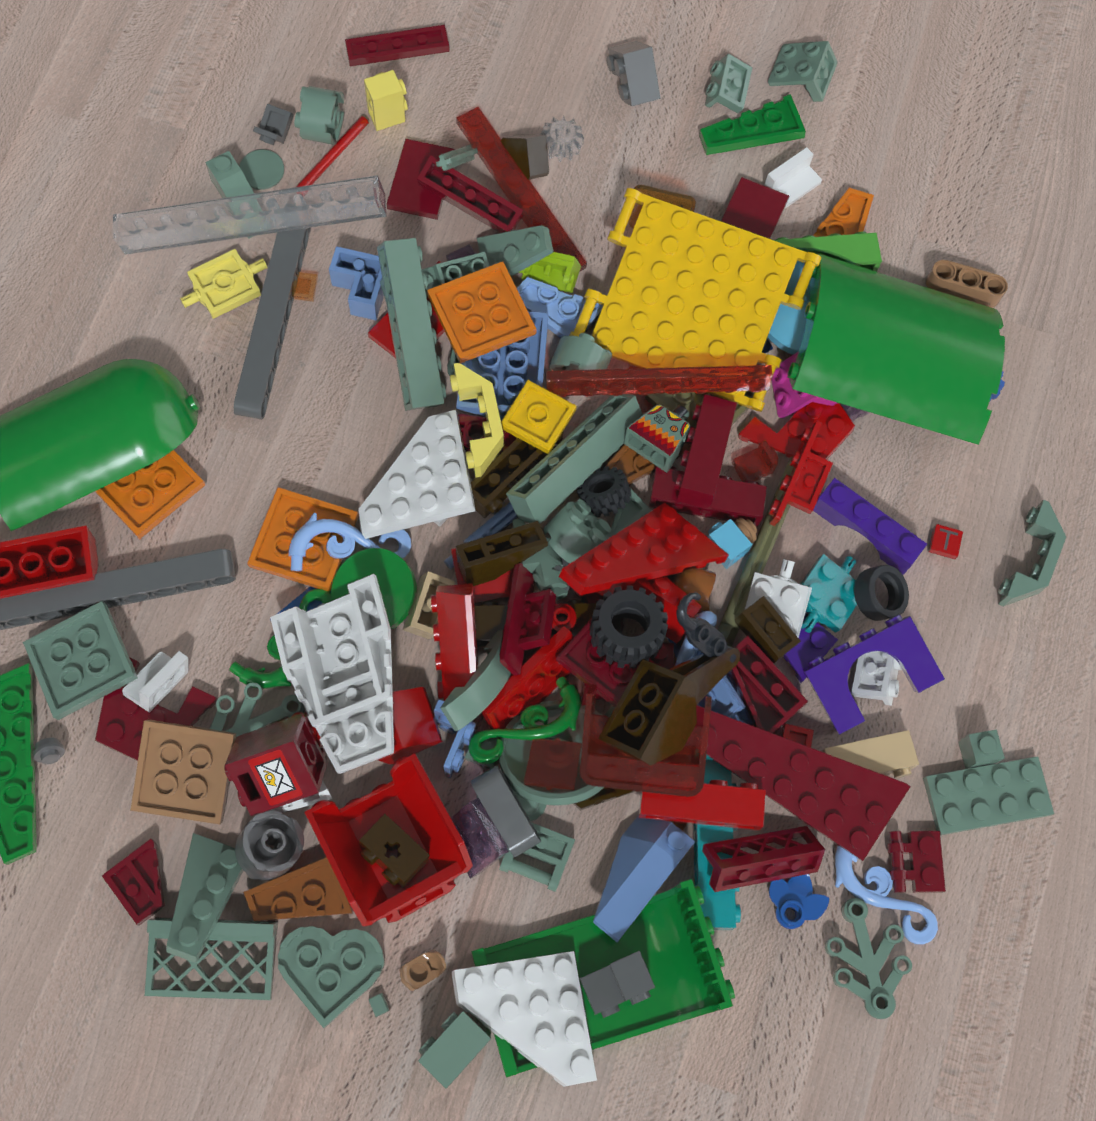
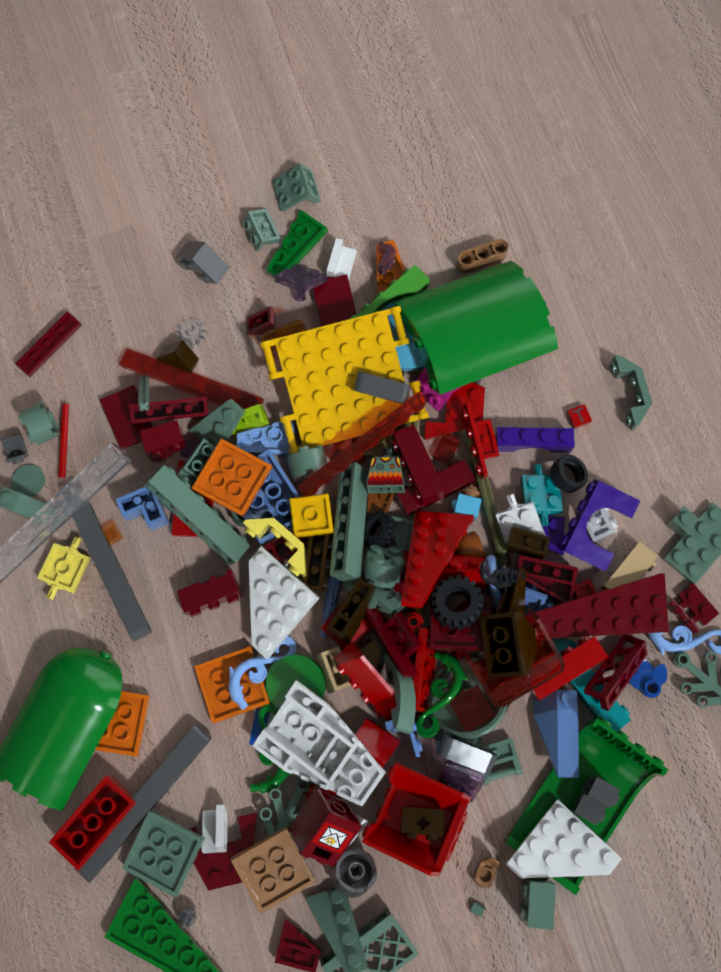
camera: 30 degrees left, 5 degrees up
(299, 894) = (391, 882): dark orange wing -> none
(328, 969) = (438, 912): sand green plate -> none
(359, 423) = (210, 594): none -> dark red wedge
(385, 99) = (70, 385): light yellow brick -> none
(438, 223) = (163, 441): none -> dark red slope
(653, 176) = (261, 321): none -> dark red slope
(729, 332) = (381, 387): none -> dark grey beam
(730, 163) = (300, 279): none -> clear purple plate
(850, 208) = (387, 261): none -> bracket

